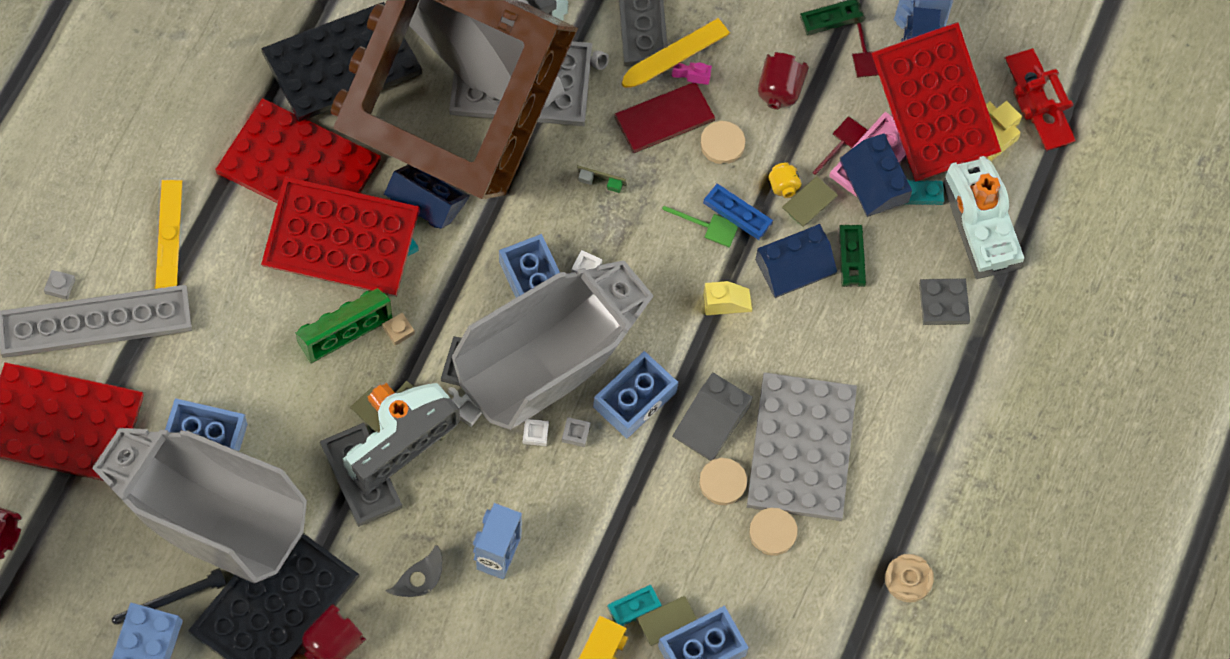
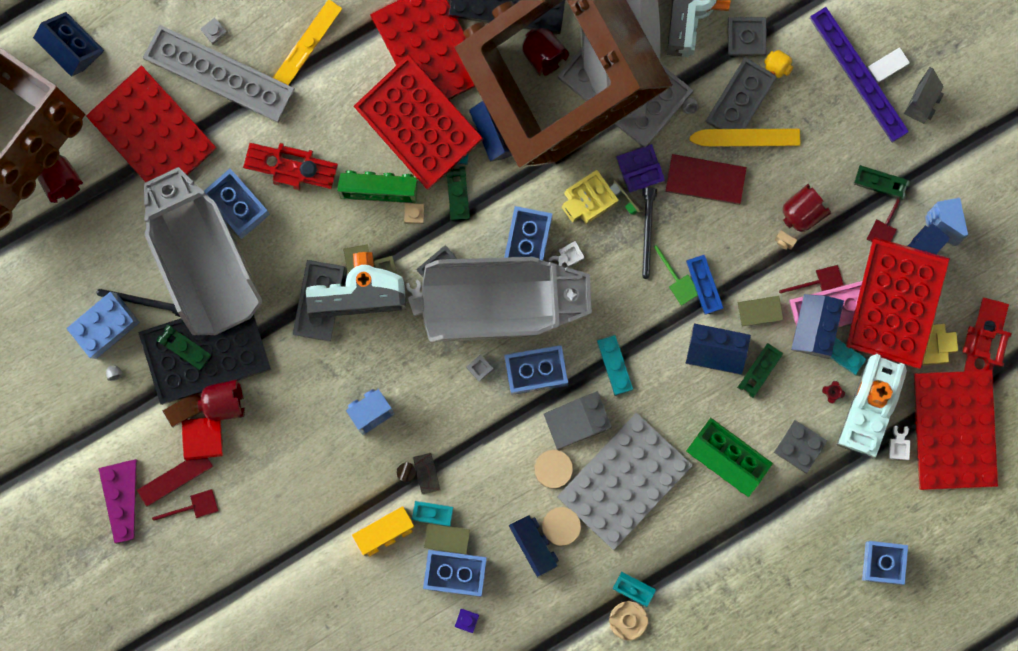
camera: 45 degrees right, 15 degrees up
(239, 366) = (291, 172): none -> red piece
(251, 611) = (185, 348): none -> dark green plate
(419, 93) = (544, 50): none -> dark red cylinder
(429, 566) = (294, 397): dark grey piece -> none
(430, 283) = (458, 195): none -> dark green plate
(535, 432) = (454, 350): white tile -> none
(565, 203) = (589, 198): none -> light yellow piece
(576, 583) = (406, 472): none -> dark brown plate
(593, 145) = (640, 168): none -> dark purple slope
(598, 572) = (426, 473): none -> clear smoke tile
(621, 164) = (649, 196): none -> black piece
(694, 73) = (750, 161): dark pink plate -> none
(708, 343) = (615, 365): none -> teal plate
(722, 142) = (732, 225): tan tile -> none
(726, 298) = (650, 343): light yellow slope -> none
(760, 567) = (534, 545): none -> dark blue slope
(783, 122) = (785, 240): none -> tan plate
(784, 180) = (754, 283): yellow head -> none
(886, 355) = (729, 457): none -> green slope
(892, 541) = (634, 589): none -> teal plate
(936, 225) = (839, 393): none -> dark red plate
(1035, 239) = (899, 447): none -> white plate
(1075, 190) = (955, 430): none -> red plate
(1109, 351) = (885, 562): none -> medium blue brick

